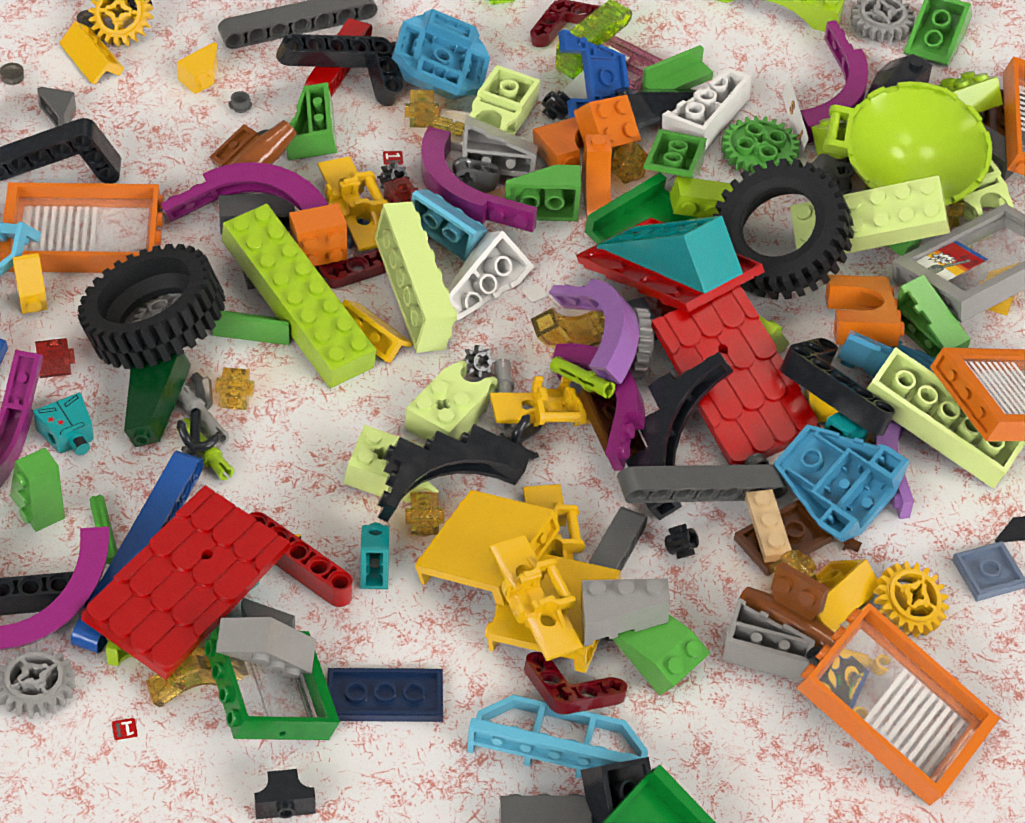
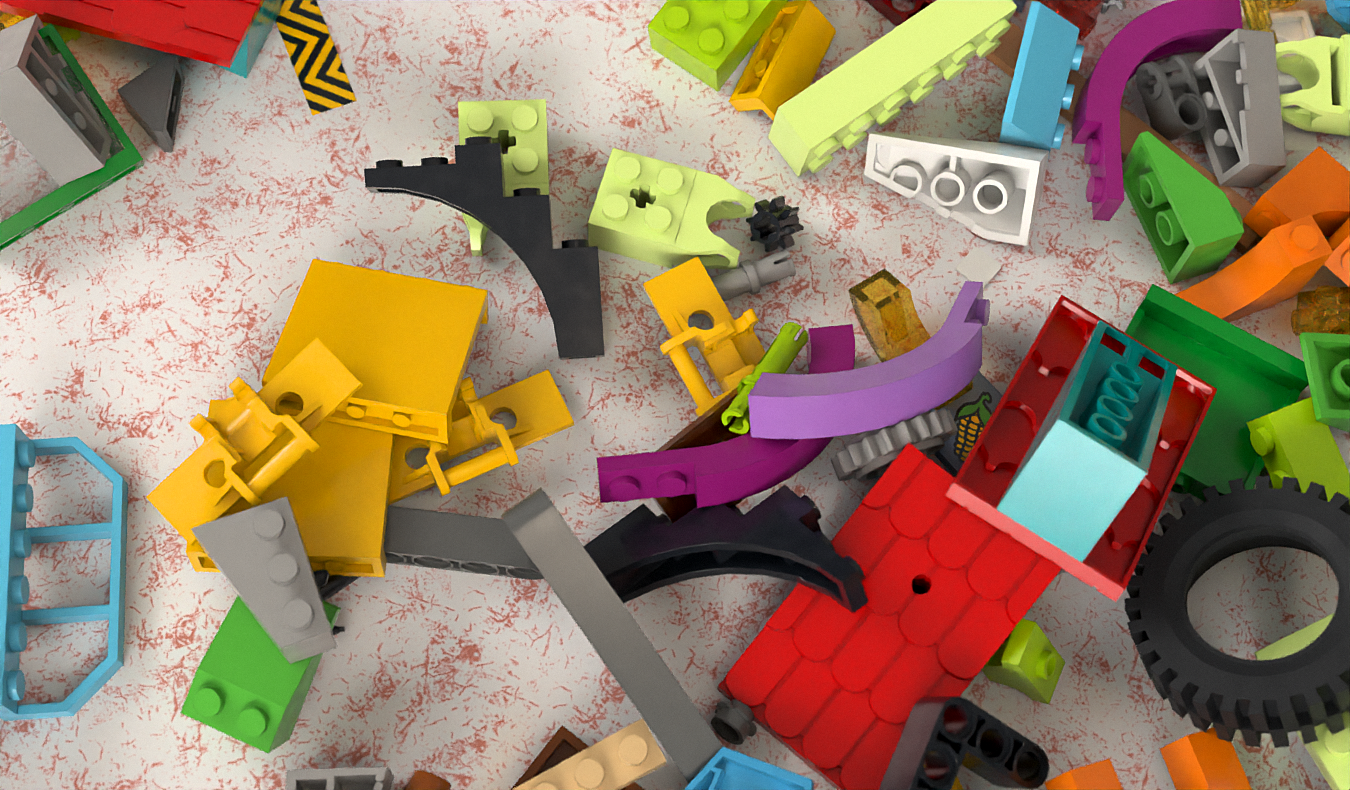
camera: 70 degrees right, 20 degrees up
(311, 566) = (287, 124): red beam -> none
(374, 545) = (321, 199): teal torso -> none
(387, 694) = (86, 304): dark blue tile -> none
(424, 513) = (427, 244): clear yellow brick -> none
(521, 433) = (640, 325): black piece -> none
(606, 691) = (142, 563): dark red beam -> none
(681, 541) = (511, 643): black gear -> none

